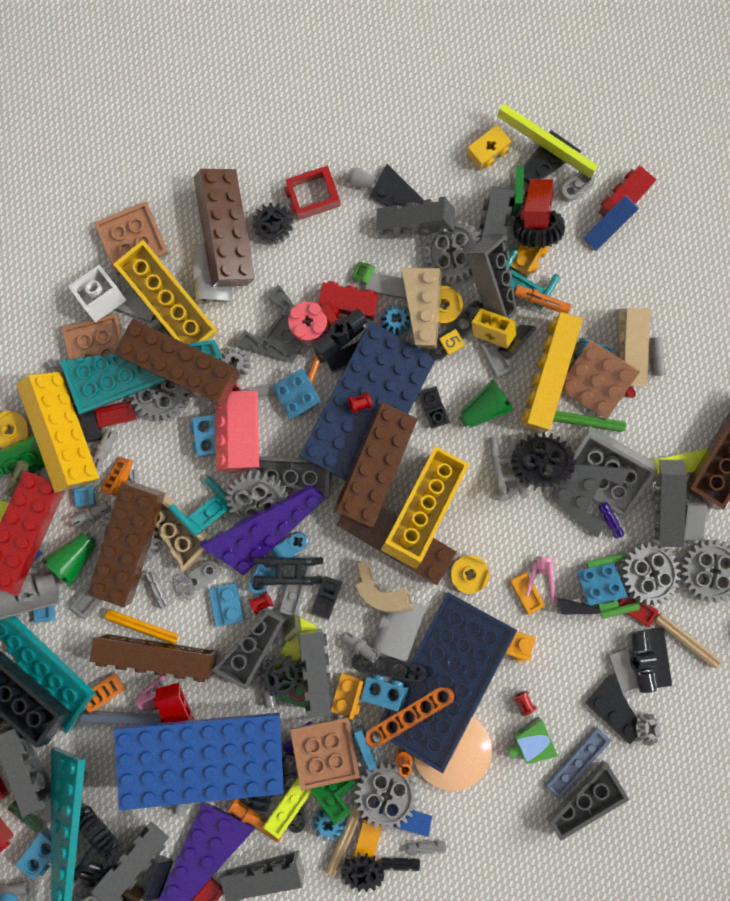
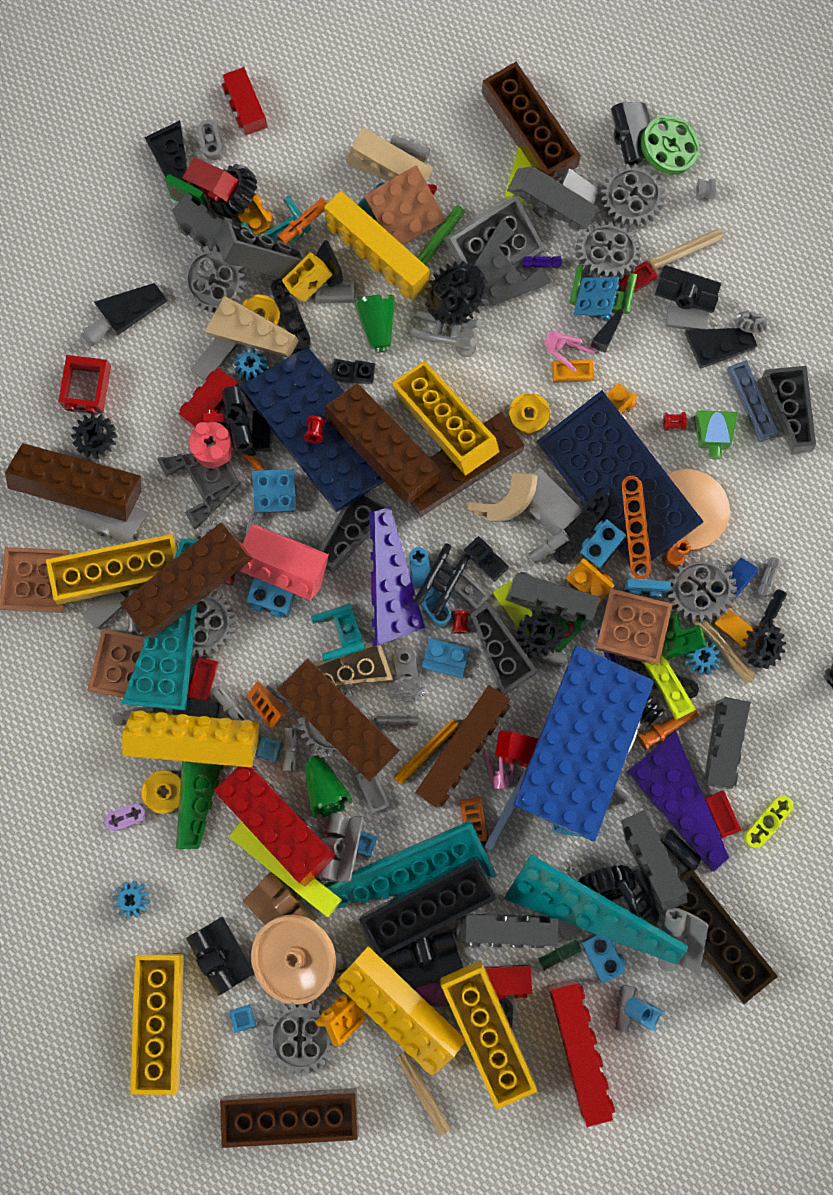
camera: 65 degrees left, 5 degrees down
(21, 466) = (216, 805): olive axle -> none
(97, 293) = (72, 636): white brick -> none
(254, 496) = (340, 575): light grey gear -> none
(292, 627) = (499, 602): olive tile -> none
(363, 272) = (188, 374): bright green tile -> none
(416, 219) = (164, 297): dark grey wedge -> none
(452, 342) = (300, 323): yellow tile -> none
(494, 139) = (126, 191): yellow brick -> none
(547, 140) = (154, 144): neon yellow tile -> none
(611, 222) = (263, 125): blue tile -> none

